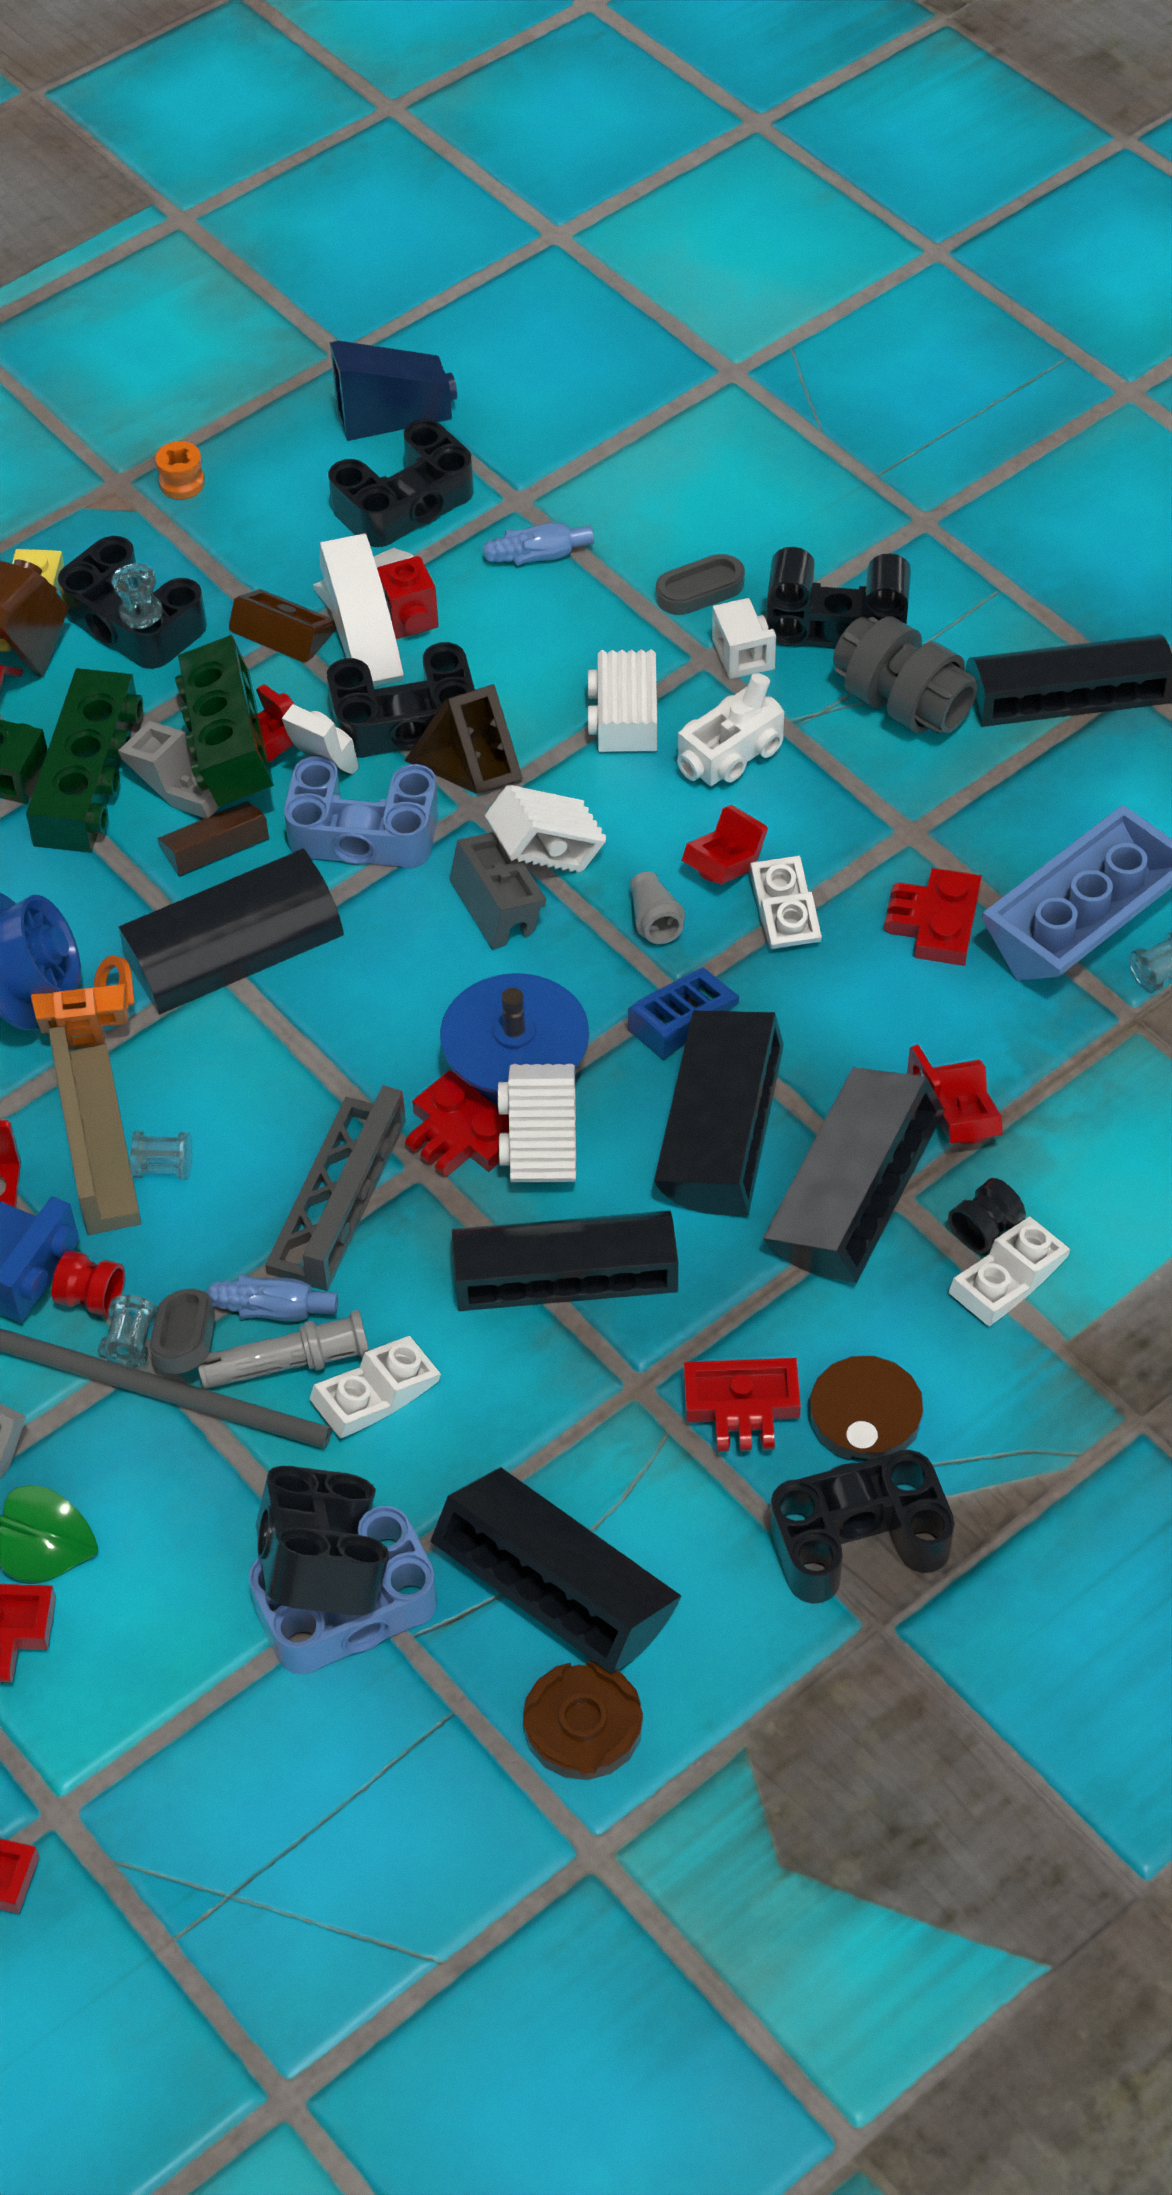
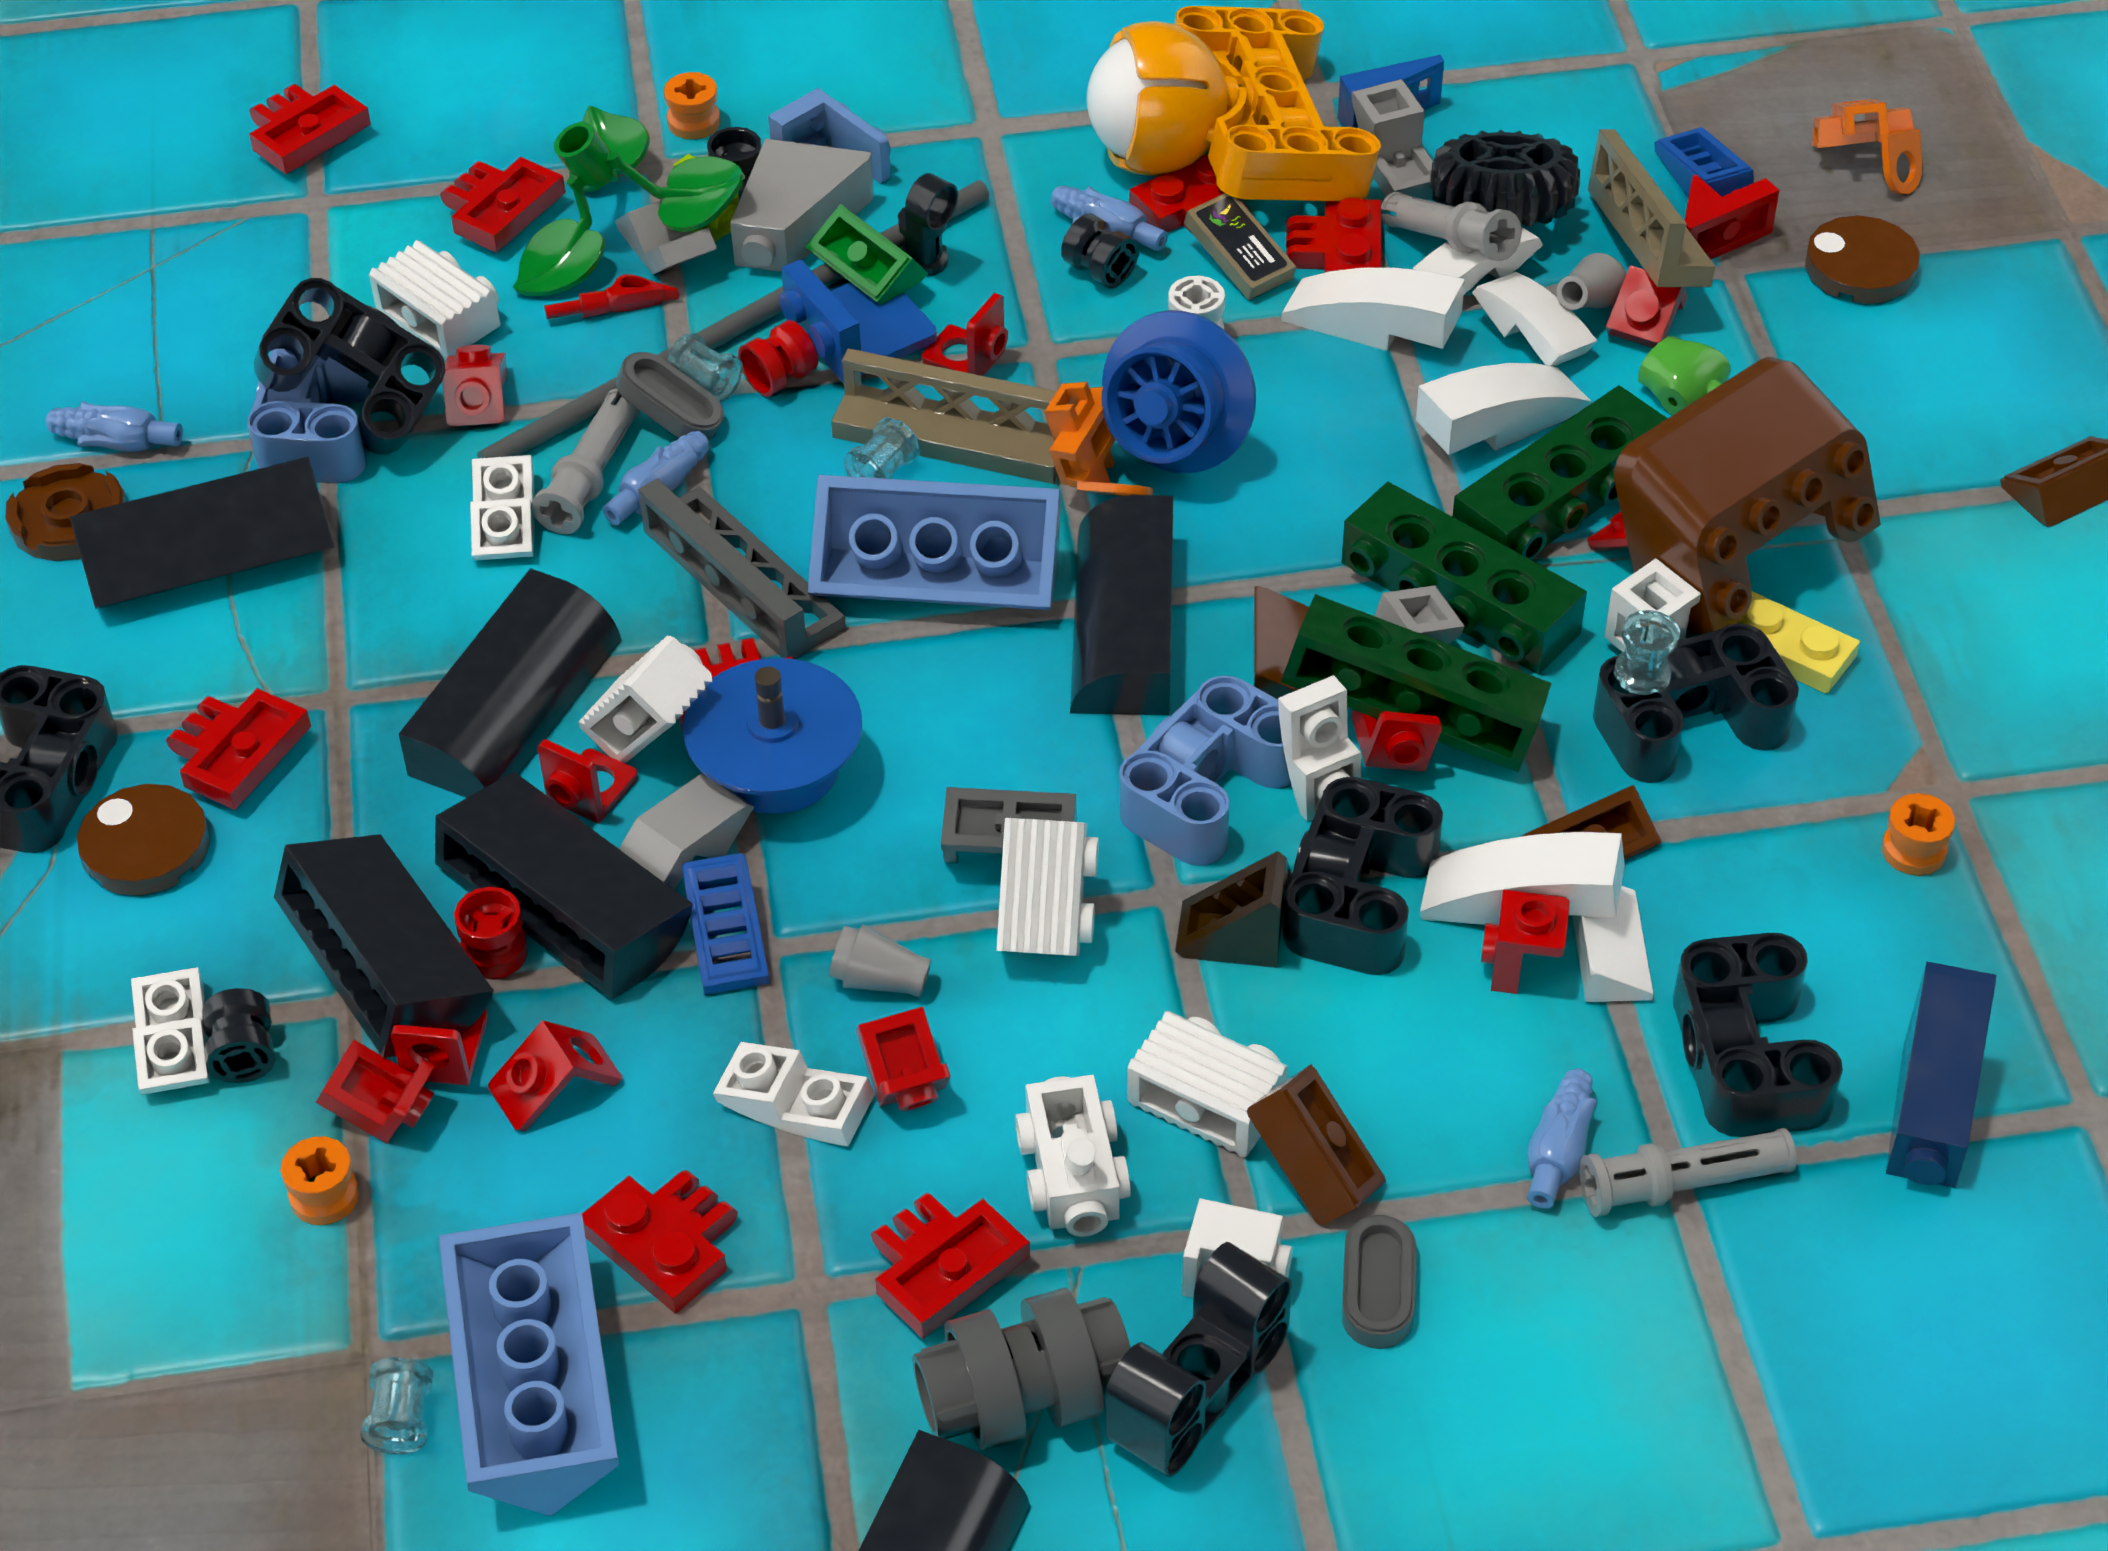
camera: 120 degrees right, 5 degrees down
(67, 1464) = (626, 294): none -> red hand
(73, 634) = (1653, 589): none -> white brick
(159, 1584) = (435, 298): none -> white brick
(234, 1493) = (474, 386): none -> bracket
(261, 1056) = (935, 542): none -> medium blue slope
(467, 1748) = (113, 427): none -> medium blue piece
(537, 490) = (1657, 1173): none -> light grey pin
(625, 1155) = (574, 783): none -> red bracket
(629, 1058) = (690, 822): none -> light grey slope
(642, 625) = (1316, 1146): none -> reddish brown slope
(792, 1123) = (492, 931): none -> red wheel
(849, 764) = (945, 1260): none -> red hinge
(877, 1026) = (544, 1068): none -> red bracket
(1042, 1111) = (332, 1192): none -> orange wheel

